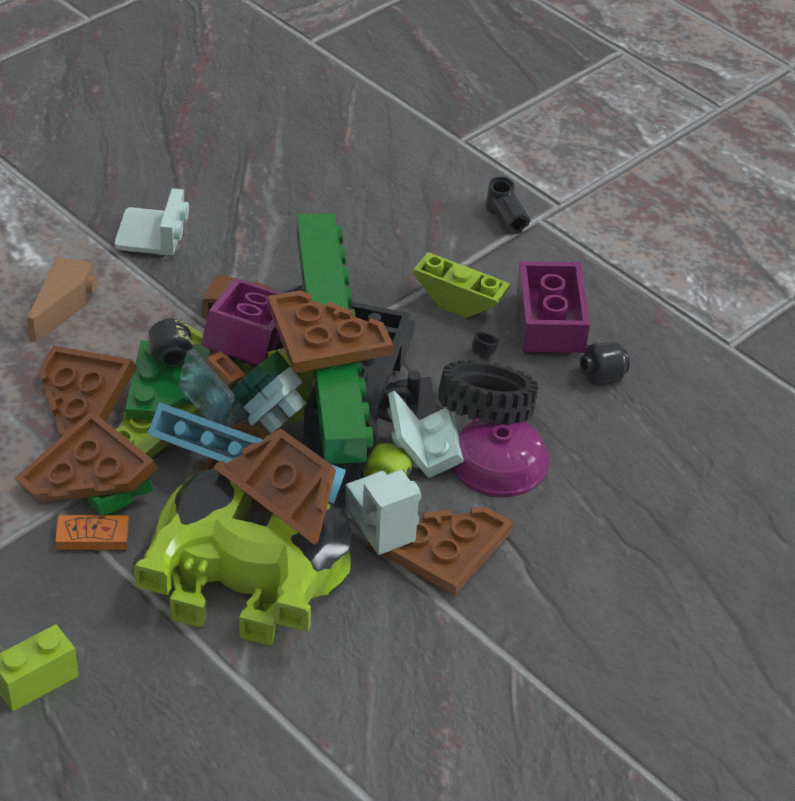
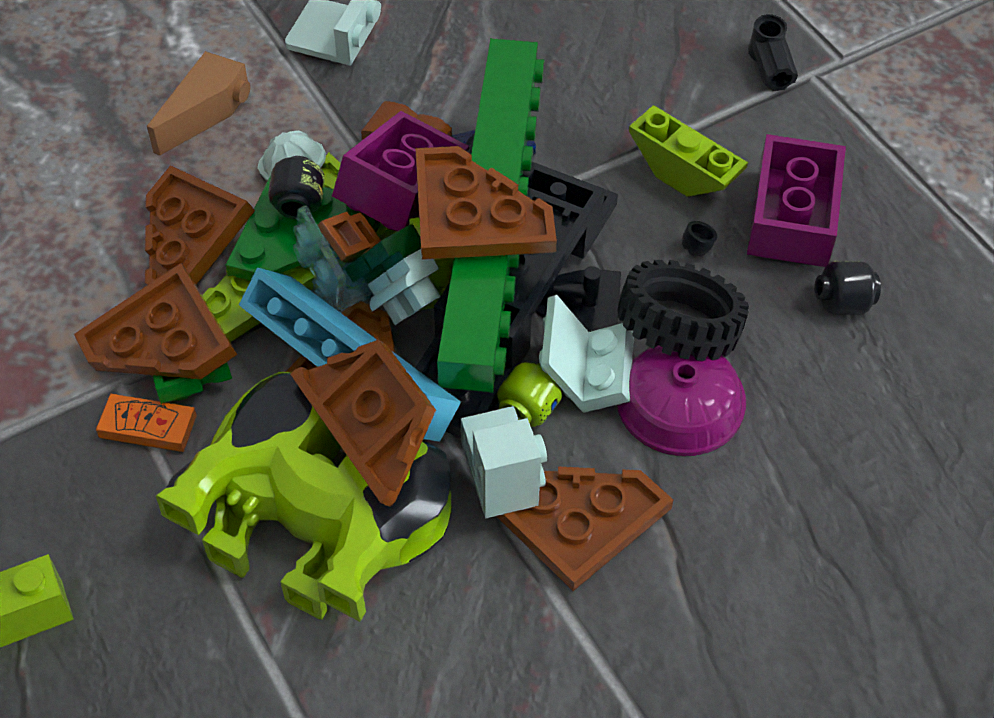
camera: 15 degrees right, 10 degrees up
(140, 325) = (288, 145): none -> light aqua piece

